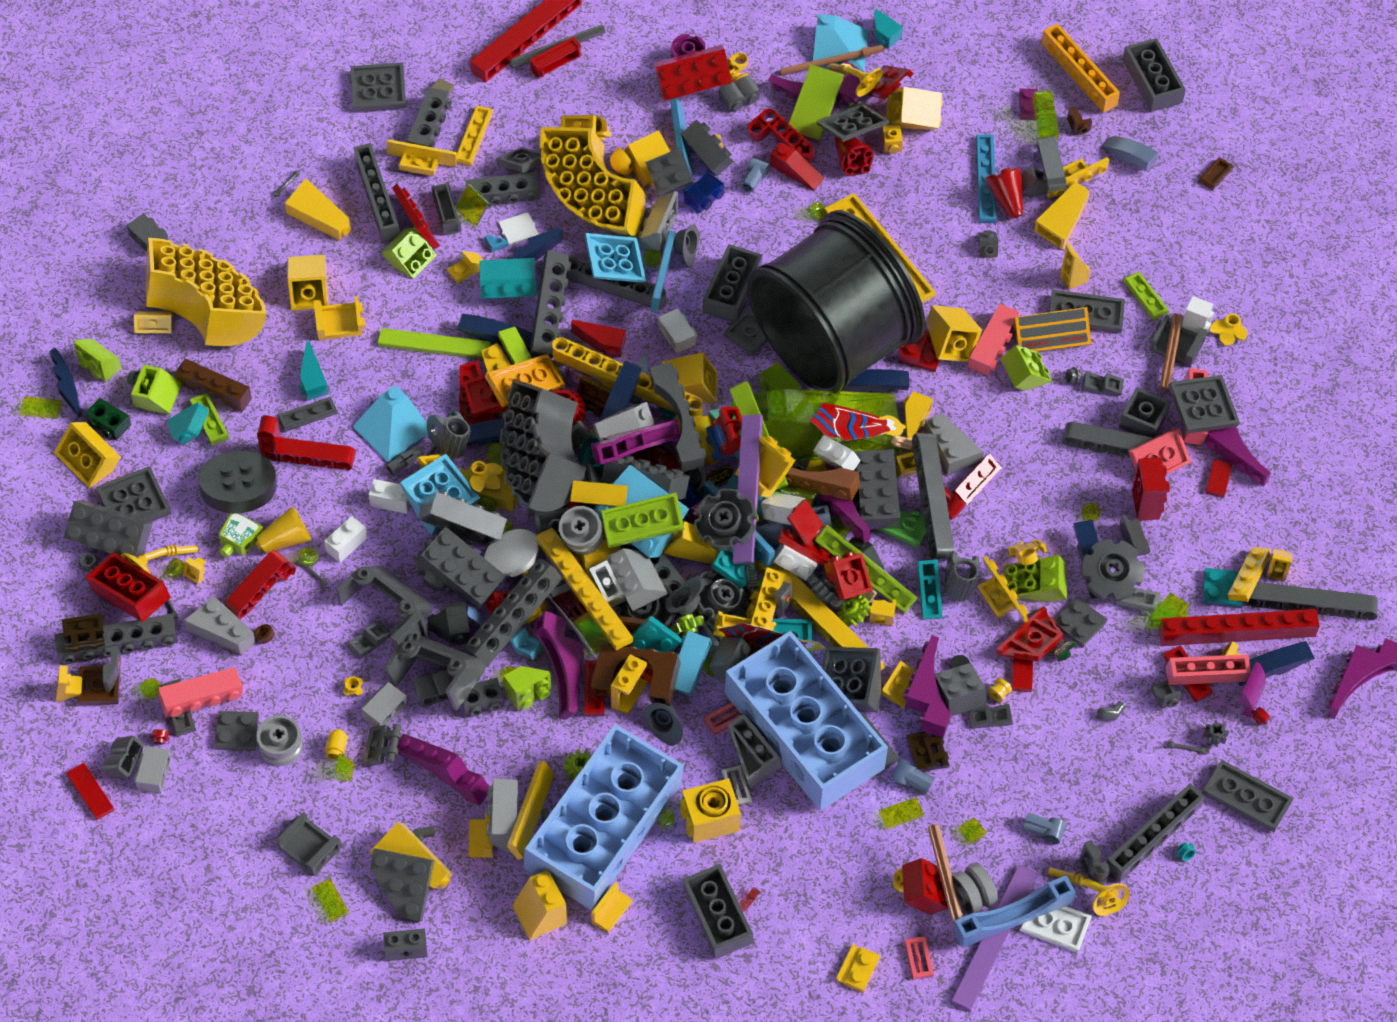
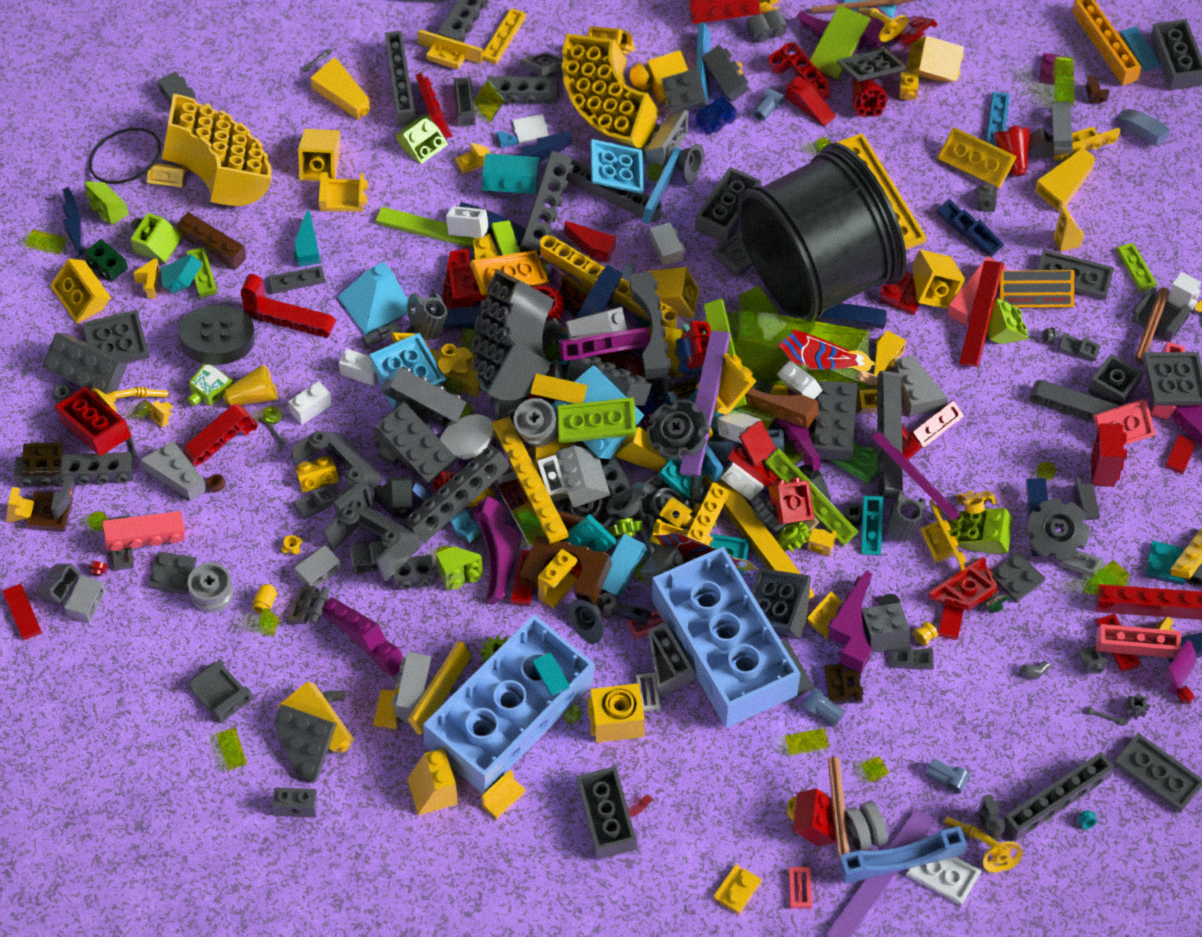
camera: 10 degrees right, 0 degrees up
(99, 282) = (136, 176): none -> black piece
(155, 429) = (148, 276): none -> yellow slope
(365, 610) = (316, 473): none -> yellow bracket
(473, 333) = (467, 222): none -> white brick
(582, 454) = (551, 351): none -> clear neon green tile
(642, 781) = (551, 674): none -> teal tile
(683, 703) = (608, 603): none -> black piece
(733, 595) = (674, 505): none -> yellow brick
(783, 598) = (724, 515): dark grey slope -> none
(909, 581) = (853, 514): none -> pearl dark grey bush
(966, 534) = (907, 466): none -> magenta tile
(971, 204) = (976, 157): none -> yellow tile
(978, 278) = (969, 228): none -> dark blue slope
(1002, 362) = (981, 313): none -> red tile
(1114, 73) = (1140, 49): none -> dark azure tile

